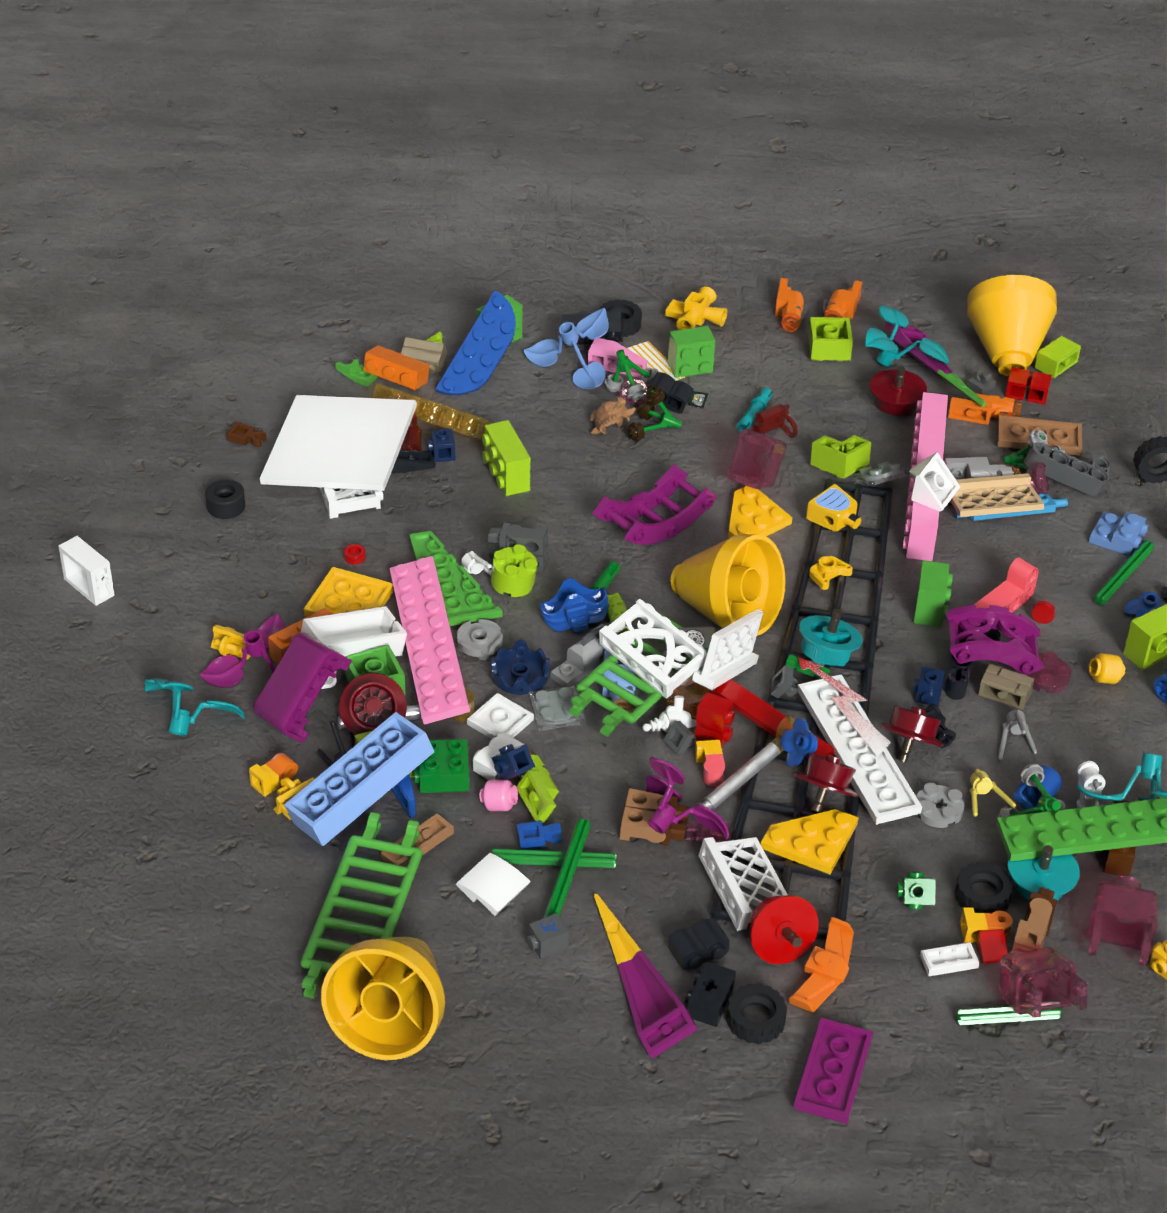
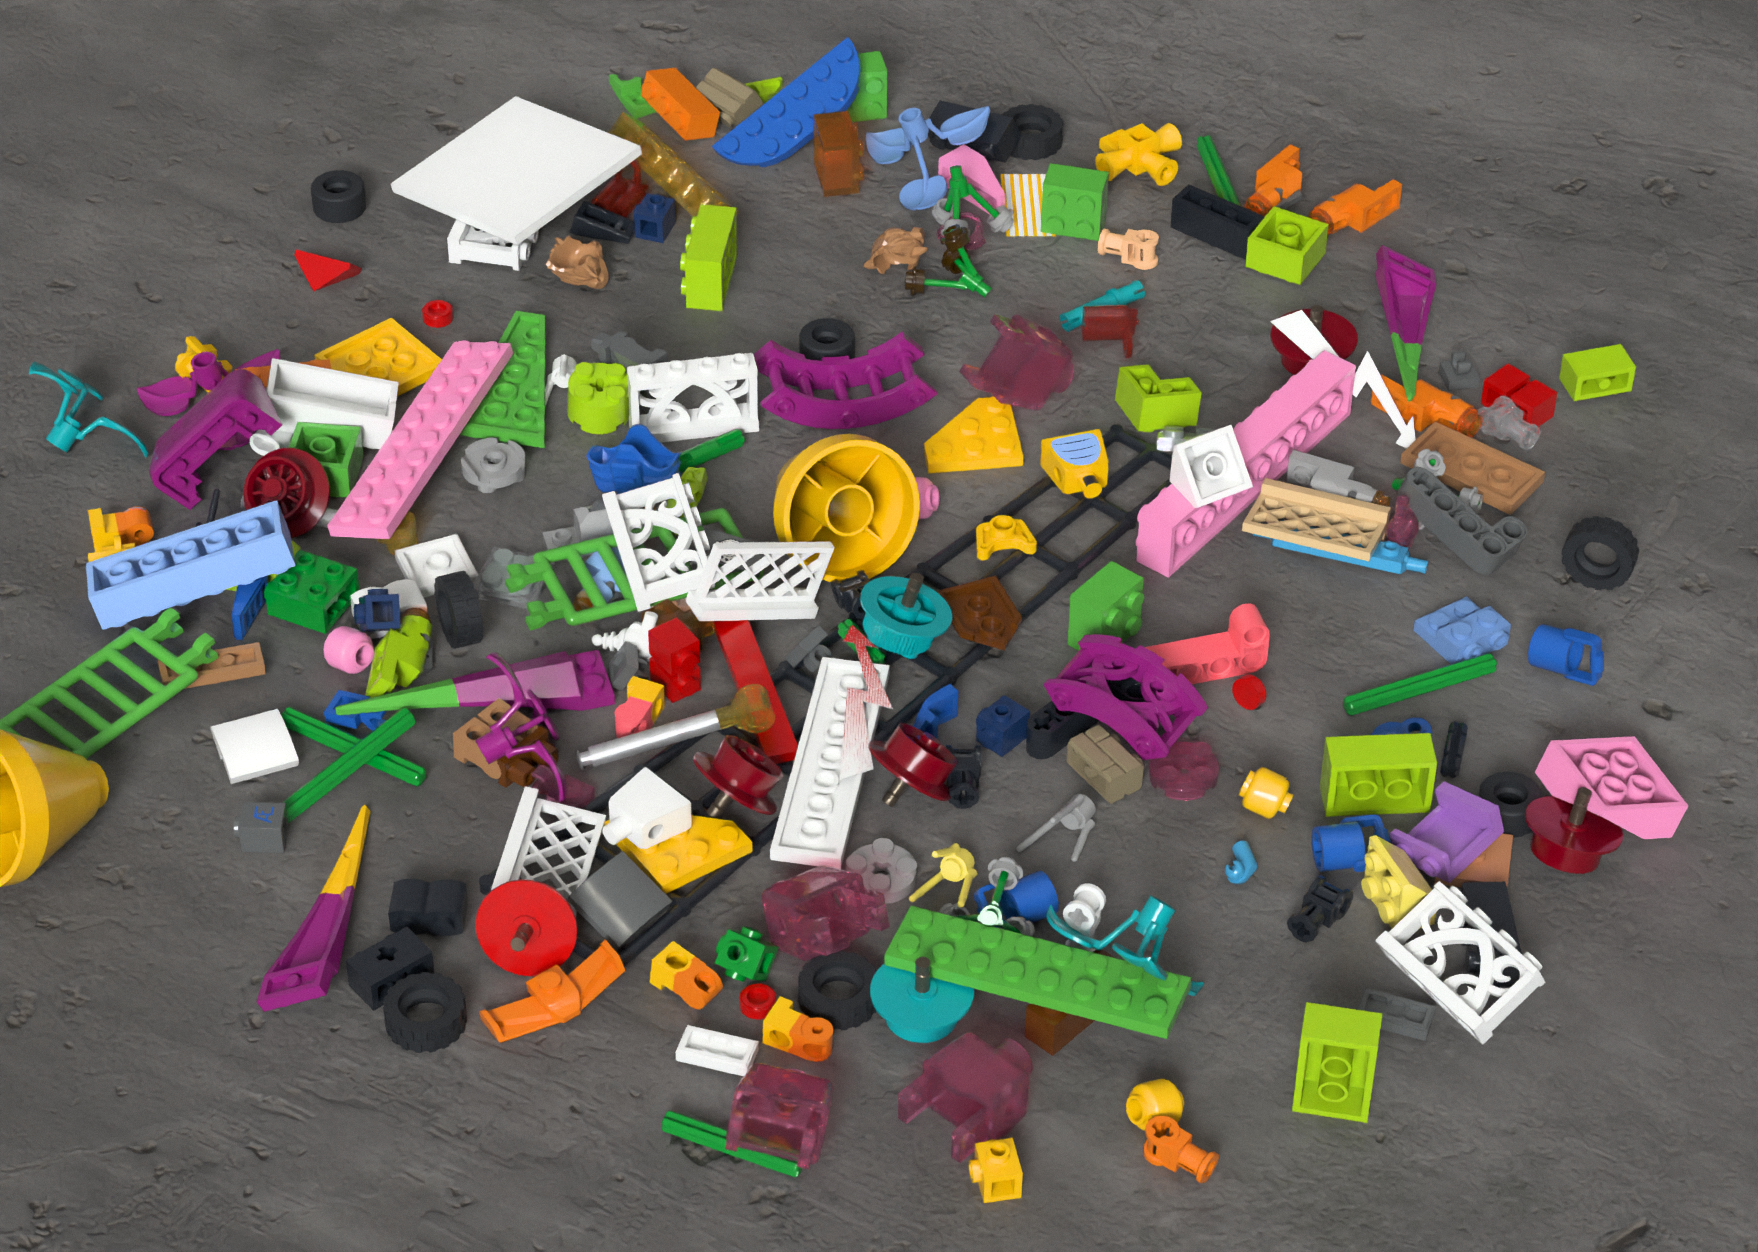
camera: 30 degrees right, 0 degrees up
(85, 569) = (103, 224): white window -> none
(244, 433) = (429, 126): reddish brown plate -> none
(256, 551) = (323, 270): none -> slope
(423, 489) = (578, 263): none -> medium nougat hair
(520, 659) = (500, 502): dark blue plate -> none
(525, 367) = (837, 153): none -> clear orange brick
(561, 732) = (458, 609): none -> black tyre
(593, 558) = (711, 373): none -> white fence
(619, 485) = (826, 339): none -> black tyre
(624, 773) = (557, 679): none -> magenta plate
(676, 392) = (1003, 245): black brick -> none
(698, 399) = (1045, 269): sticker -> none
(741, 368) = (1131, 246): none -> light nougat connector
(754, 314) = (1216, 169): none -> green axle
(777, 637) = (848, 593): none -> black connector
(779, 337) = (1213, 220): none -> black brick
(792, 823) = (646, 812): none -> white torso
(798, 742) = (733, 717): blue plate -> none
(818, 886) = (619, 900): none -> dark grey slope
(833, 1070) = (456, 1112): magenta plate -> none
(866, 620) = (983, 612): none -> reddish brown tile
(886, 700) = (937, 710): none -> blue slope
(889, 351) = (1330, 265): teal plant -> none
(892, 920) = (685, 976): none -> leg
(902, 388) = (1309, 339): none -> white sticker
(941, 917) = (757, 1001): none -> red tile
(944, 845) = (808, 921): none -> clear pink piece
(991, 945) = (788, 1052): red slope -> none
(1012, 318) = (1552, 296): yellow cone -> none
(1035, 401) = (1508, 422): none -> clear connector
(1038, 921) = (852, 1051): medium nougat hips -> none
(1131, 717) = (1243, 866): none -> dark azure arm

